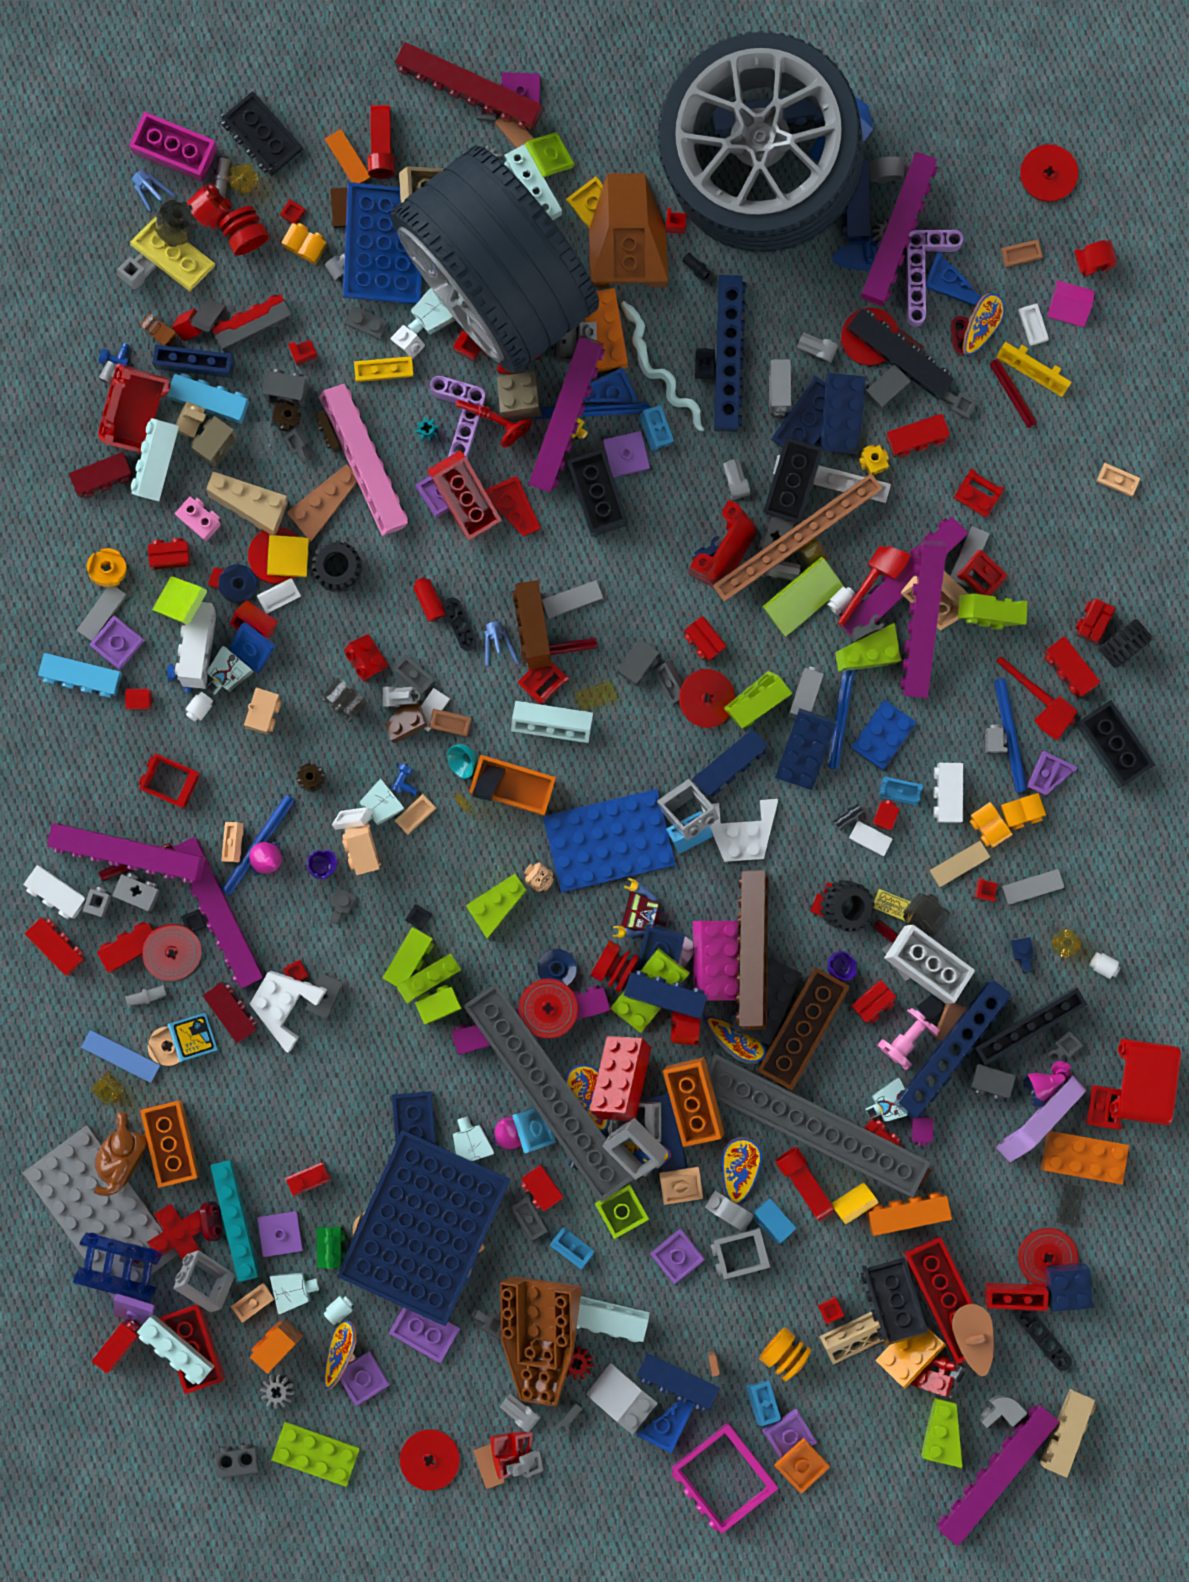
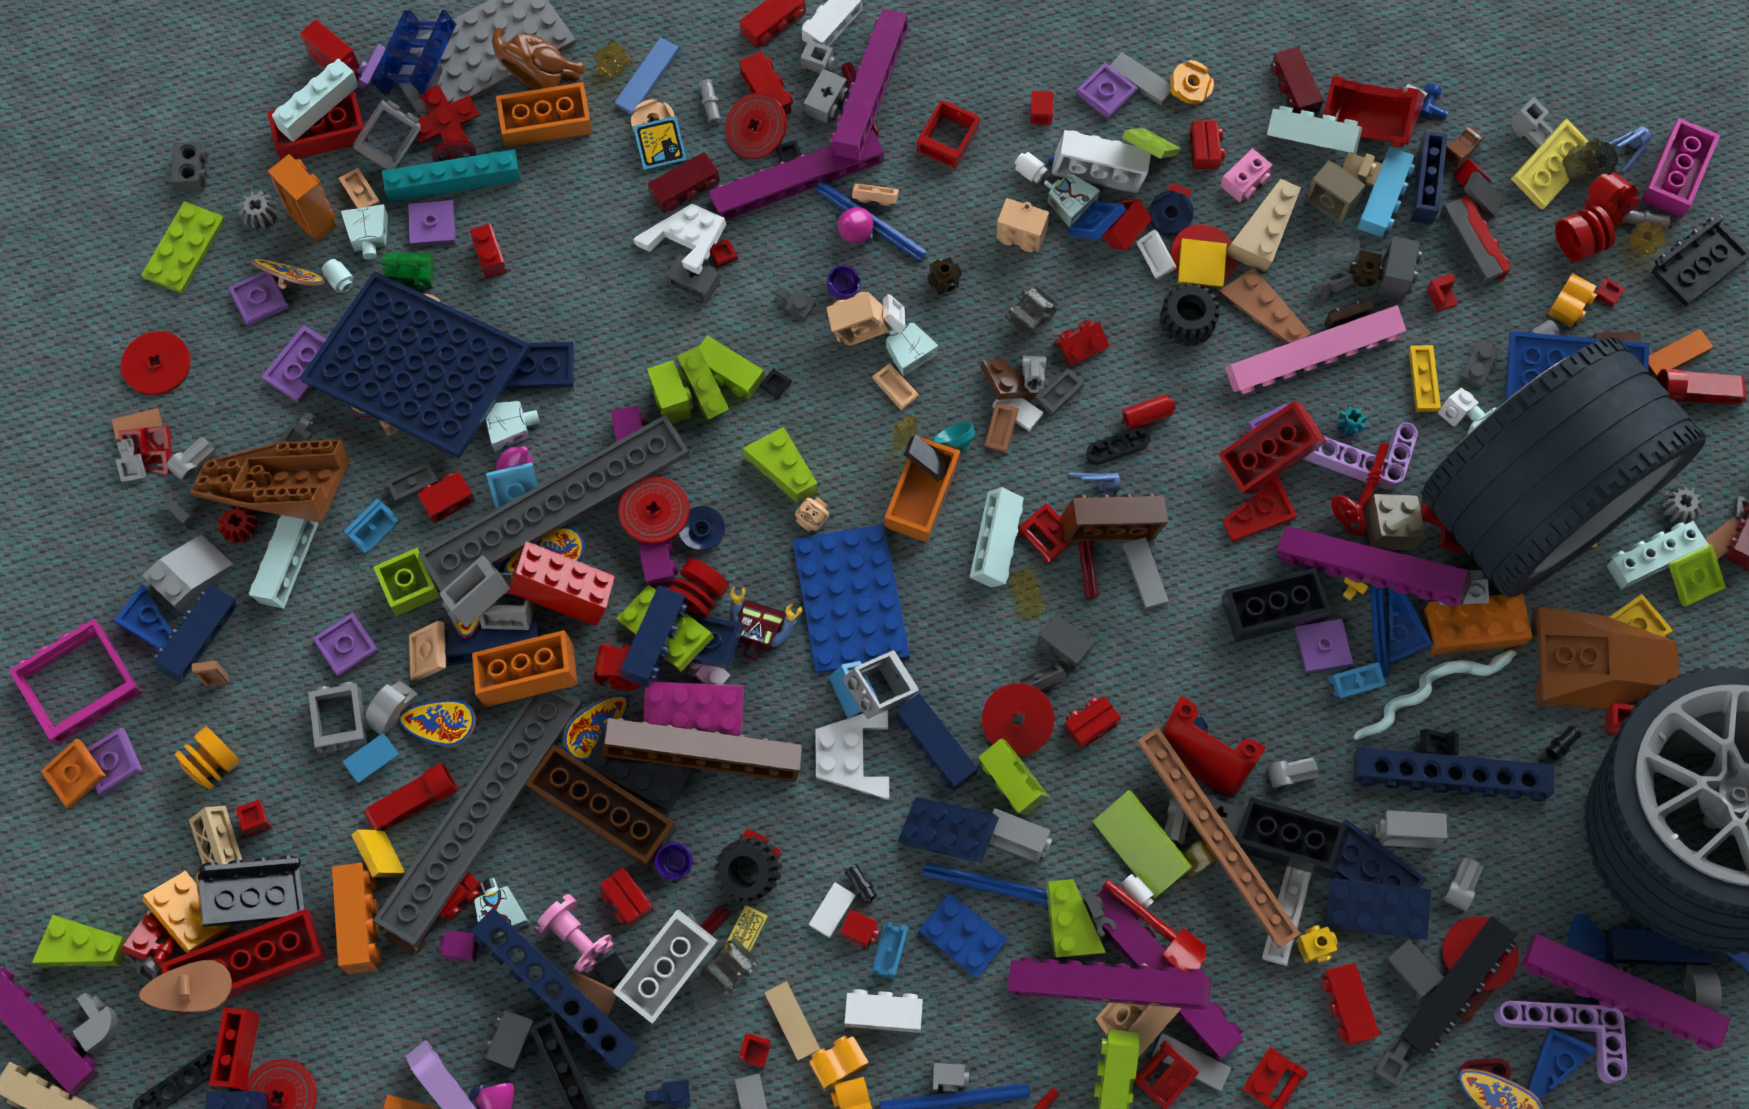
camera: 90 degrees right, 15 degrees down
(79, 674) = (1071, 52): medium azure brick -> none
(399, 784) = (931, 371): blue piece -> none
(763, 1403) = (154, 731): dark azure hinge -> none

